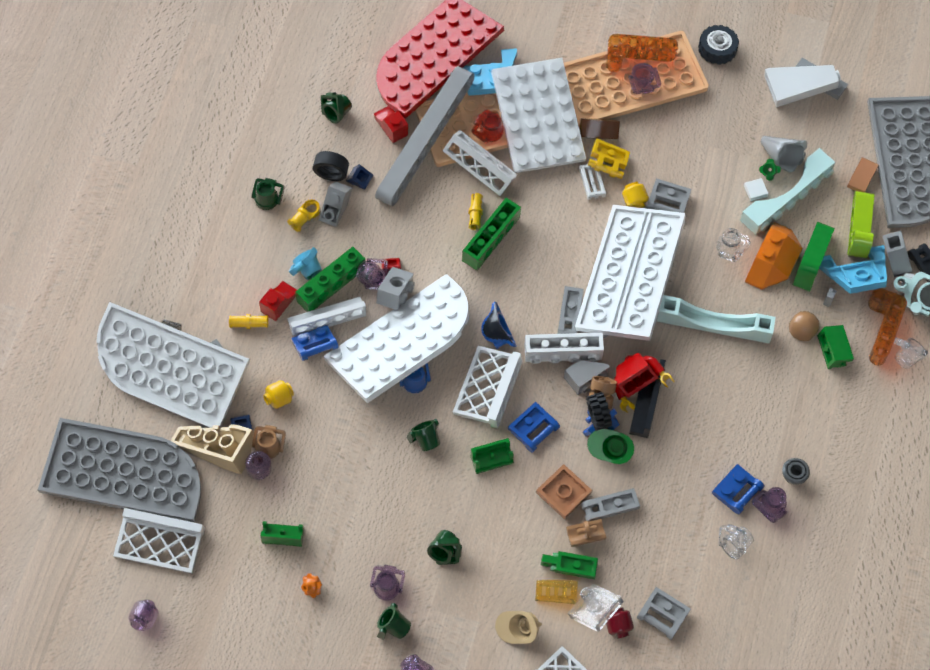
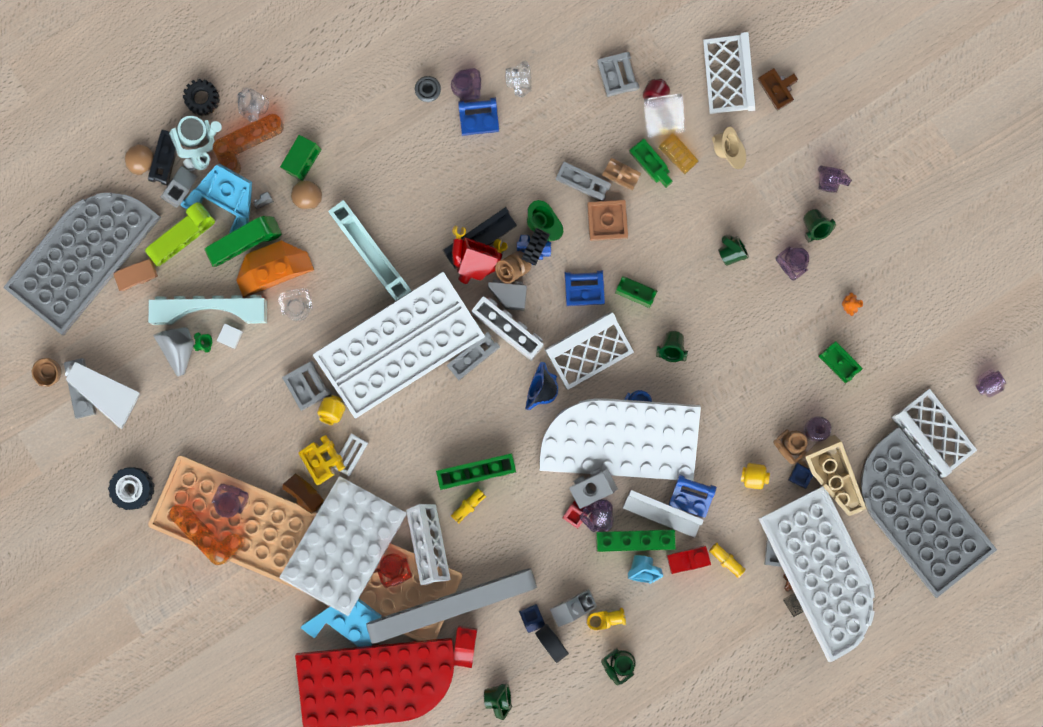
camera: 135 degrees left, 20 degrees up
(852, 68) = (46, 372): none -> medium nougat hair

